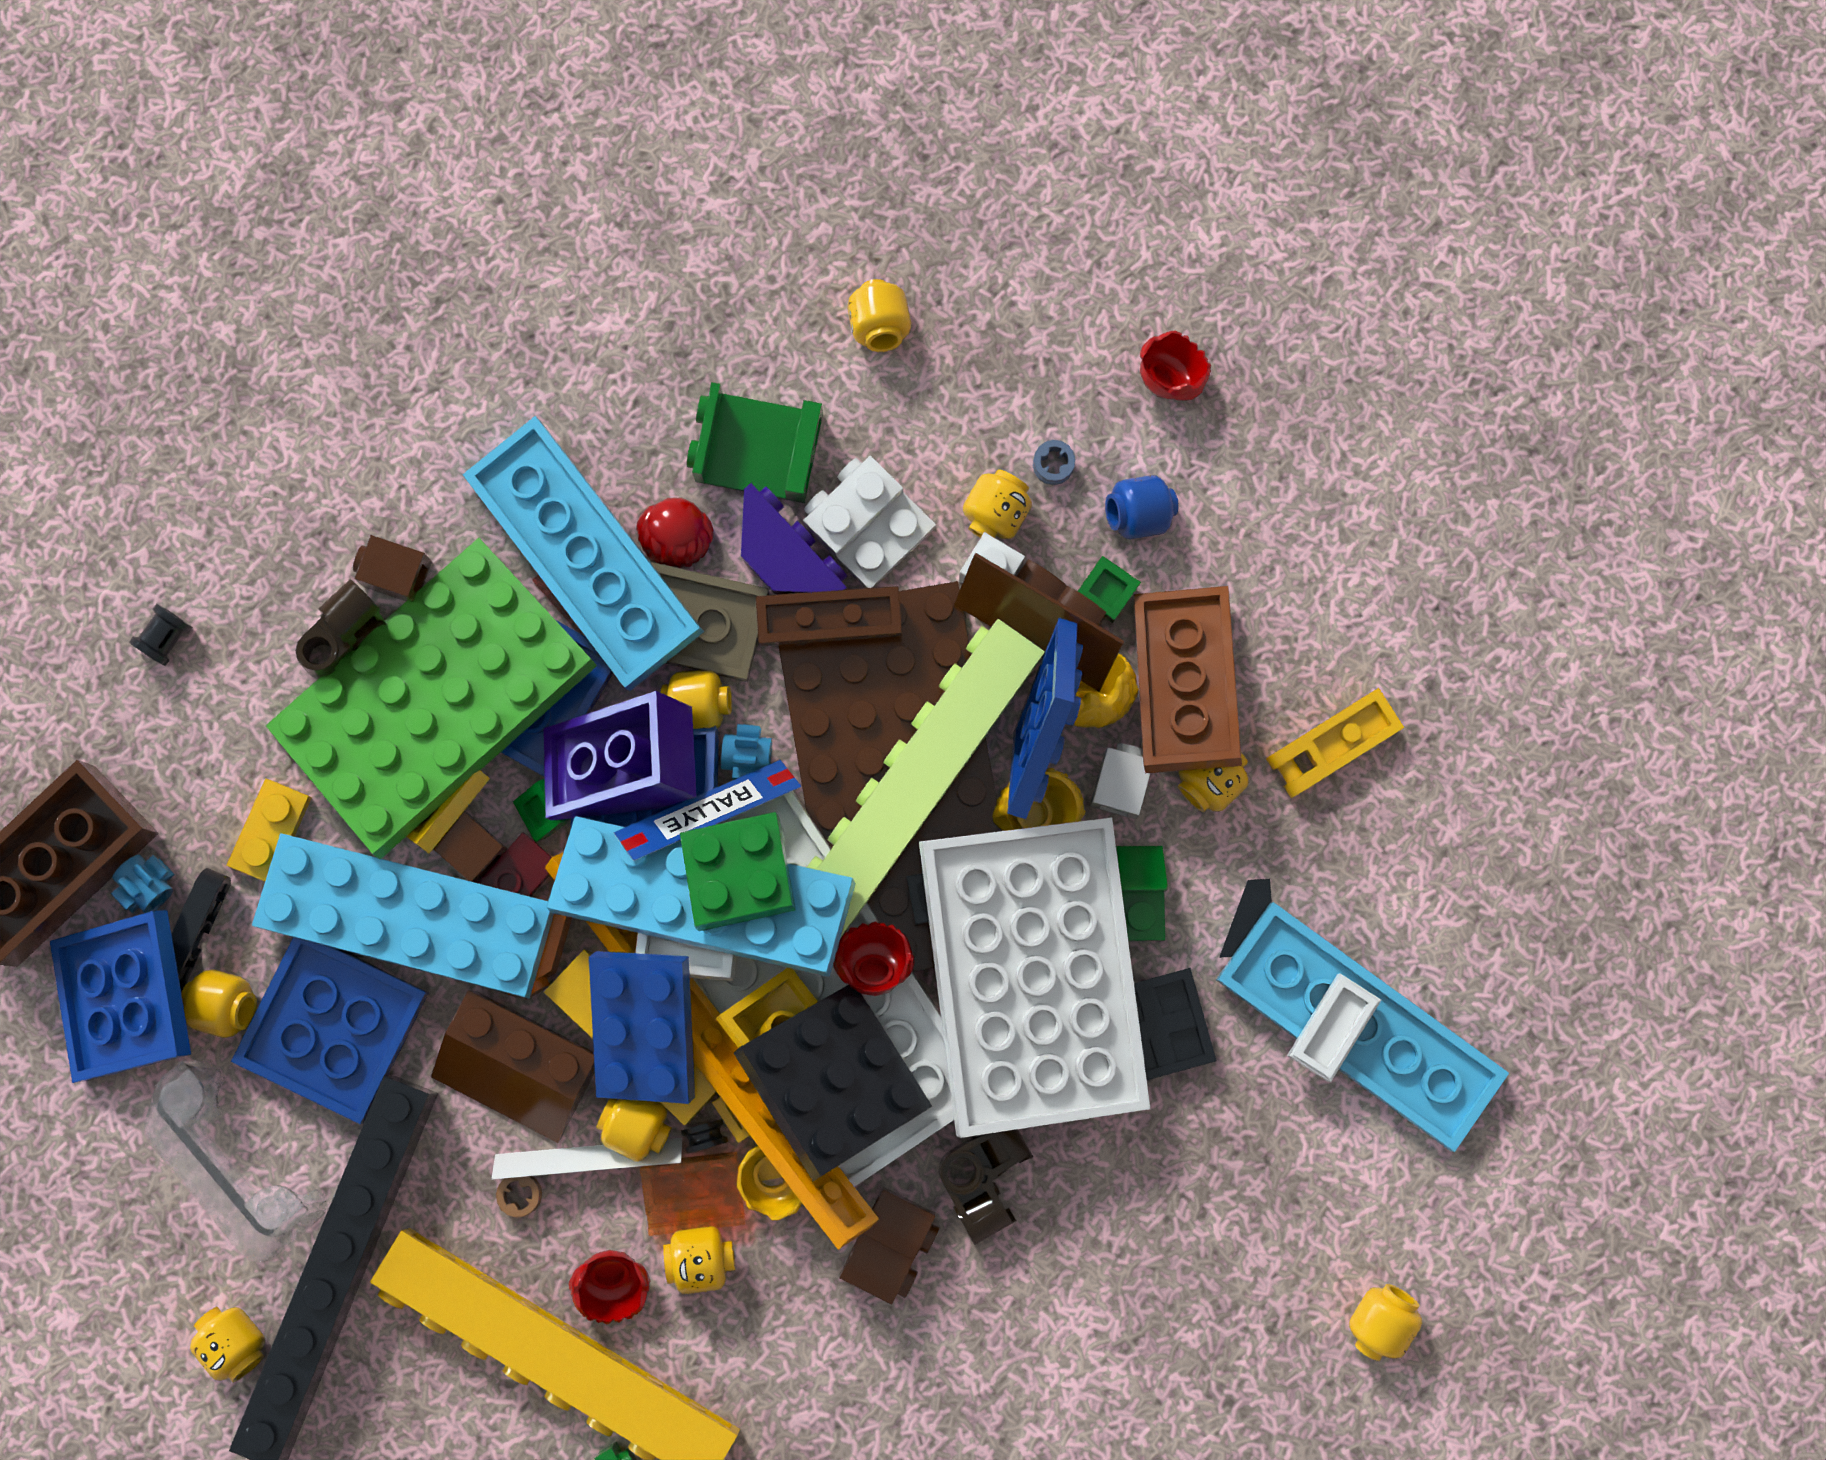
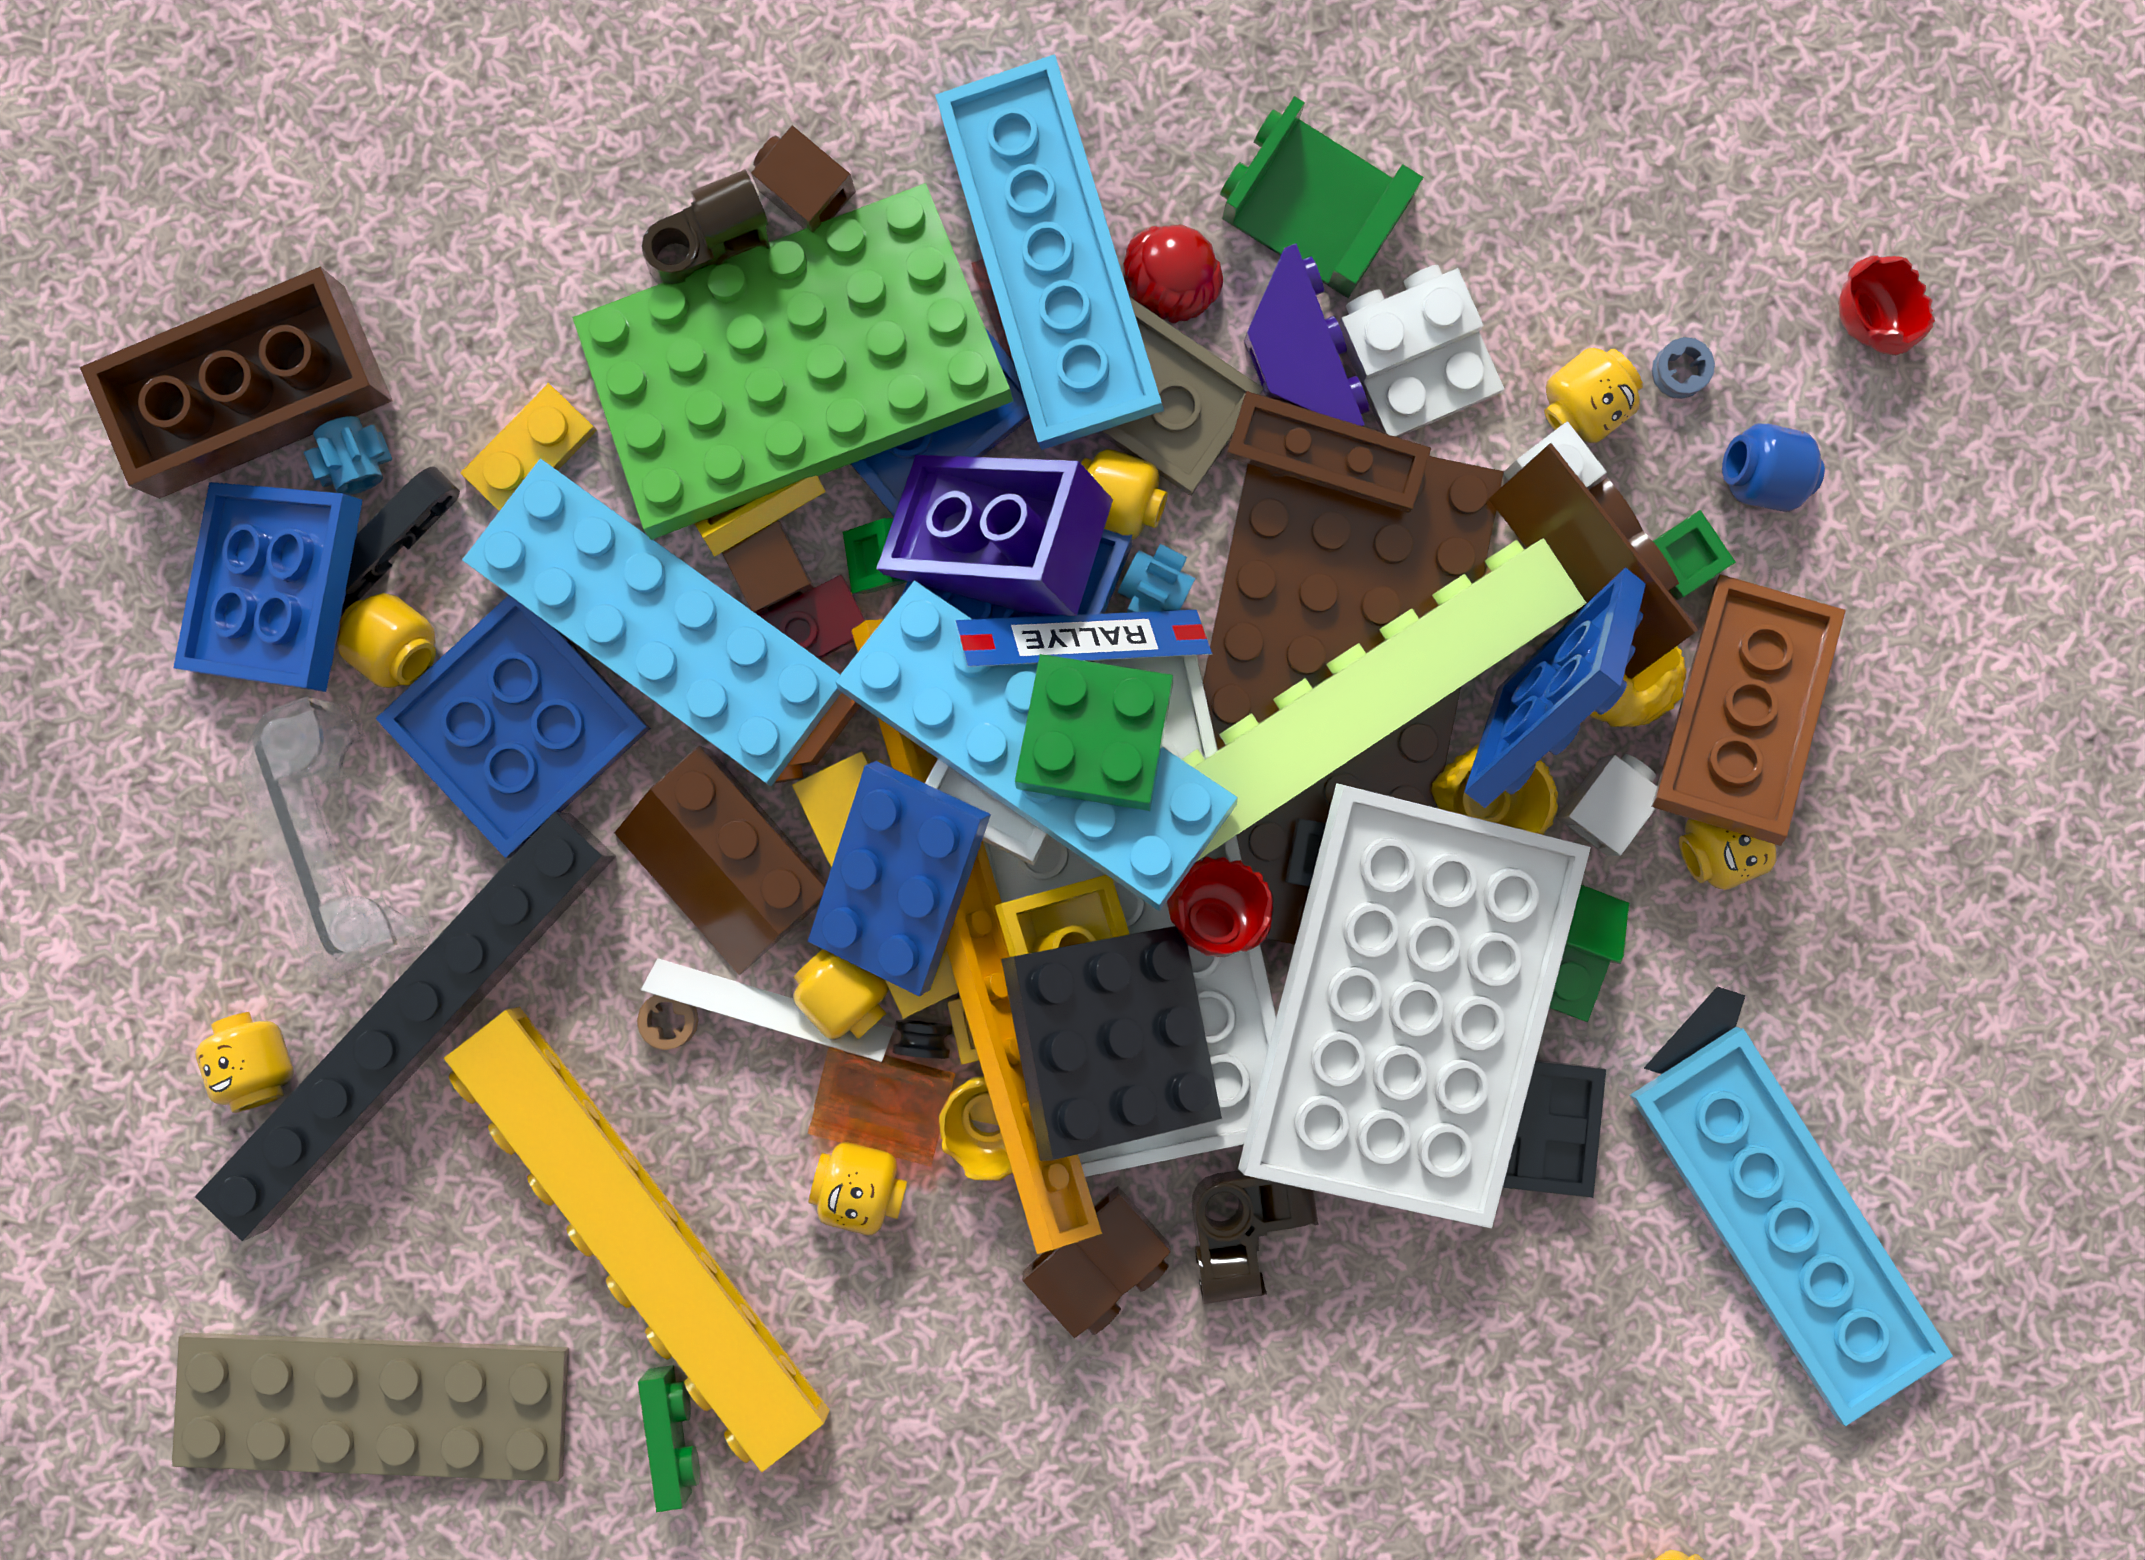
camera: 20 degrees right, 5 degrees up
(160, 634) = (485, 152): black bush -> none
(609, 1287) = (736, 1178): red hair -> none
(879, 315) = (1537, 94): yellow head -> none
(1334, 1027) = (1758, 1215): white tile -> none
(1336, 741) = (1900, 859): yellow plate -> none

